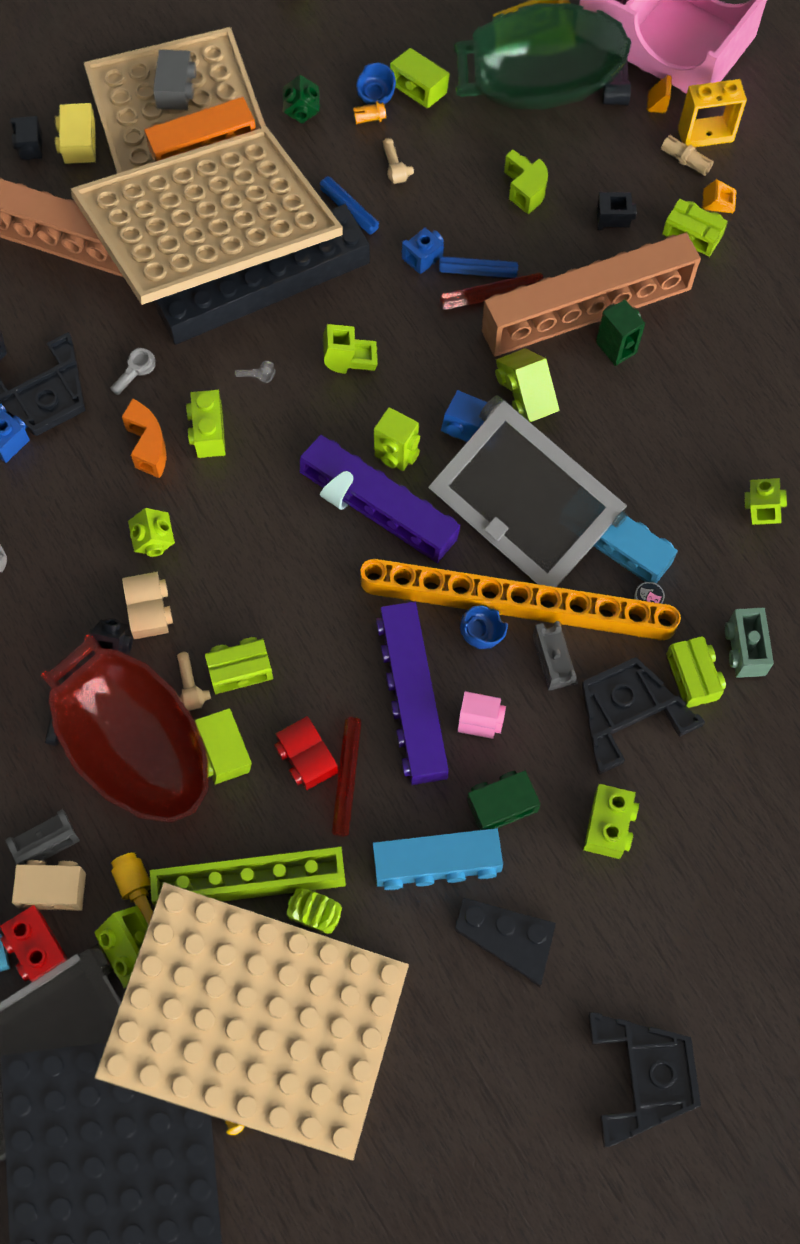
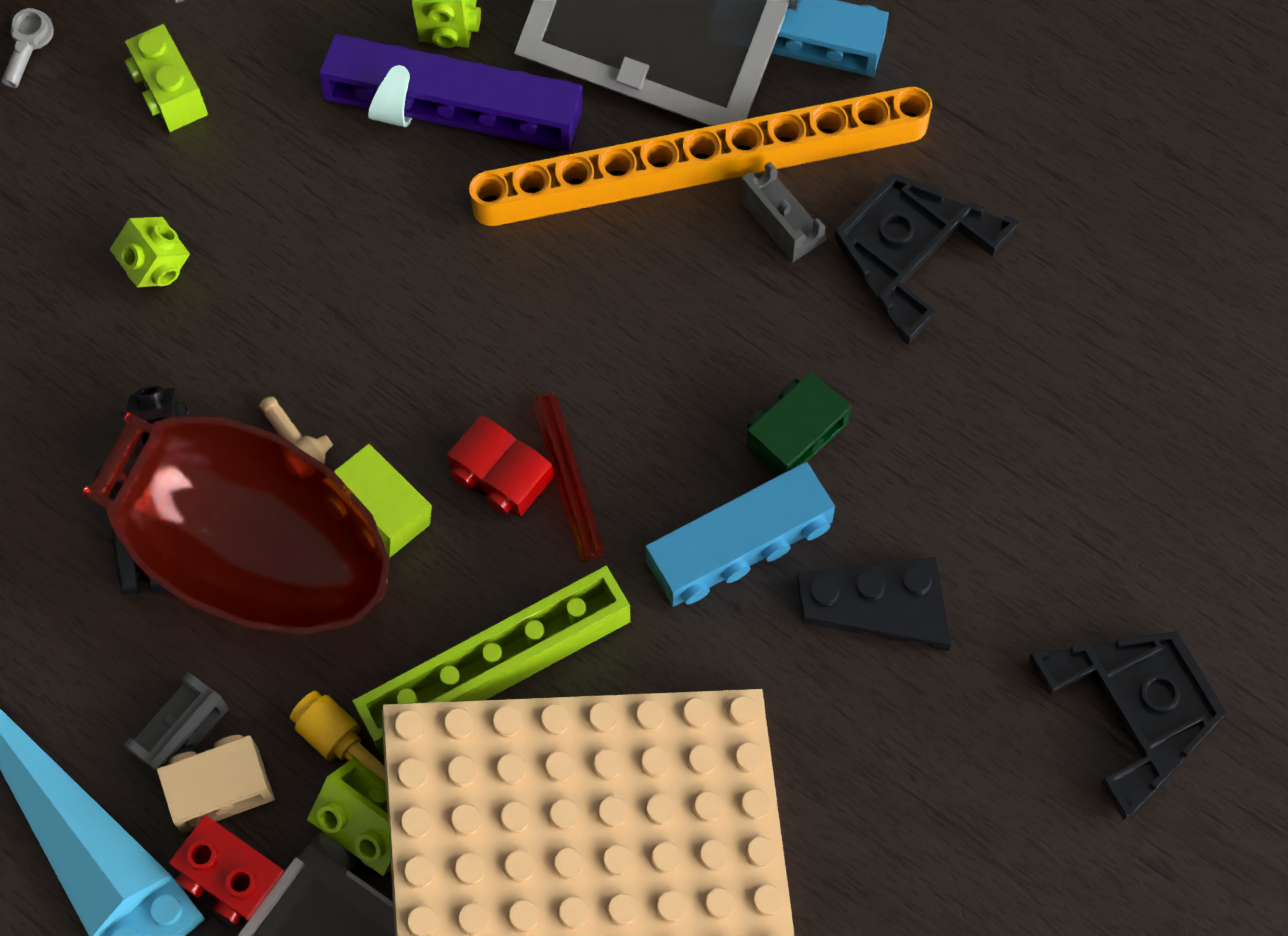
camera: 20 degrees left, 0 degrees up
(146, 605) = (186, 354): tan brick -> none
(150, 450) = (98, 143): orange brick -> none
(238, 665) = (353, 385): lime brick -> none
(314, 910) = (603, 667): lime gear -> none
(413, 693) = (613, 332): dark purple brick -> none
(481, 715) = (719, 322): bright pink brick -> none
(482, 627) = (670, 210): blue hair -> none
(610, 821) = (951, 398): lime brick -> none
(649, 592) = (872, 82): tile -> none
(695, 671) = (978, 162): lime brick -> none
(750, 642) = (1034, 97): sand green brick -> none

